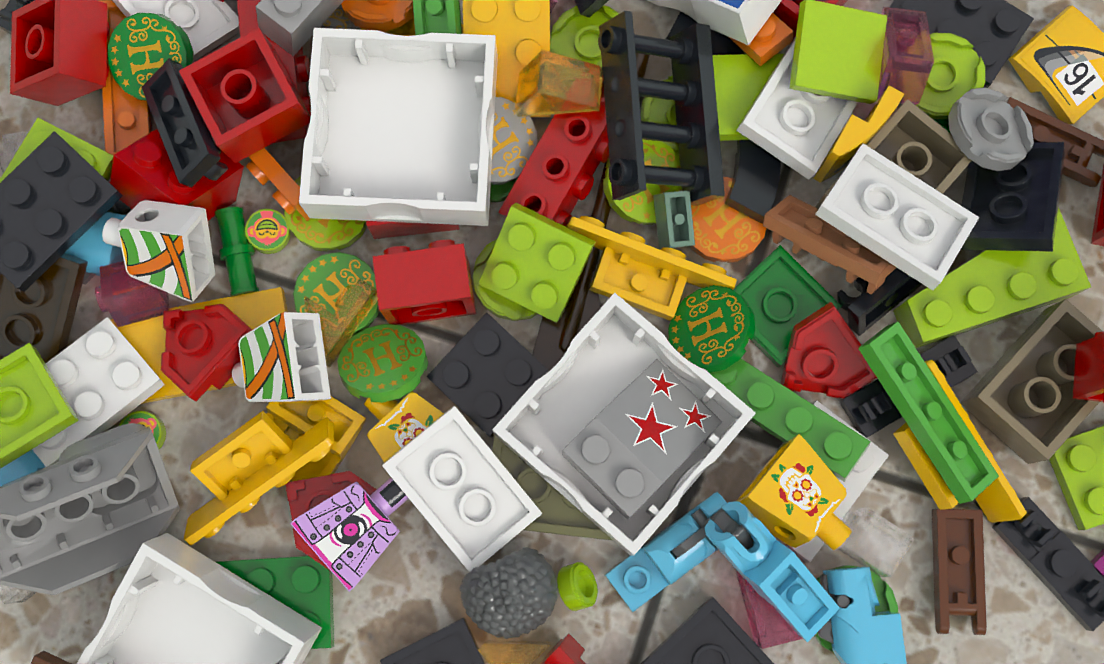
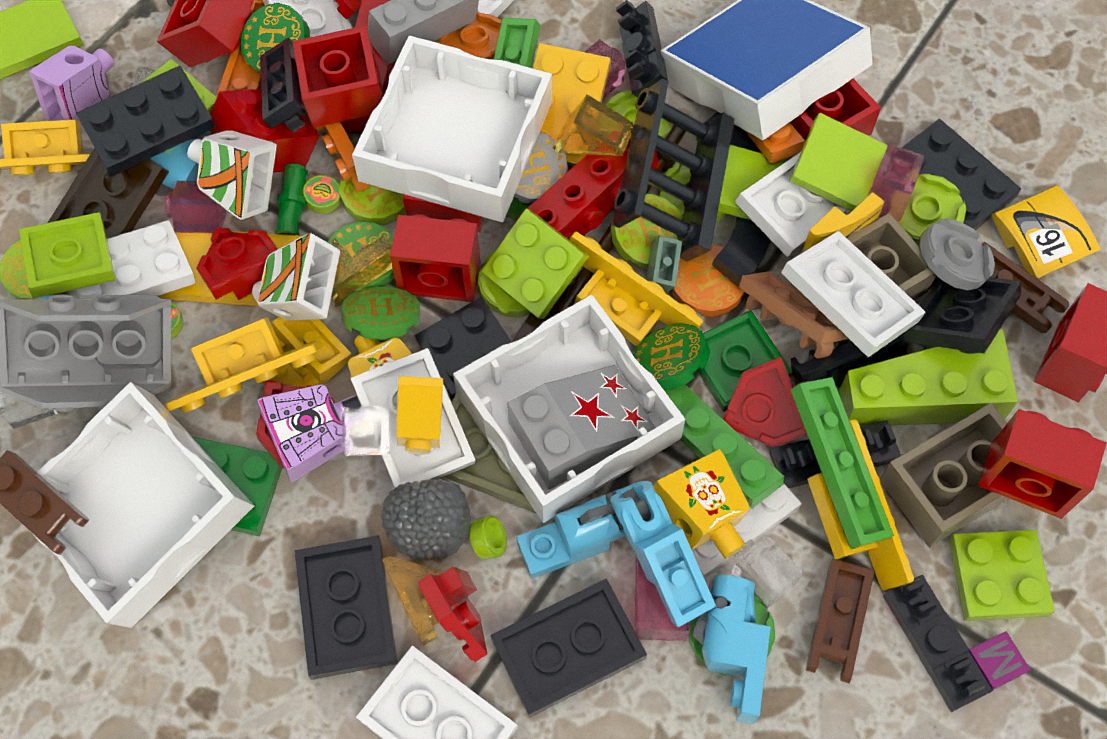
camera: 15 degrees right, 15 degrees down
(422, 530) = (365, 430): none -> clear brick
(475, 495) = (419, 413): none -> yellow slope

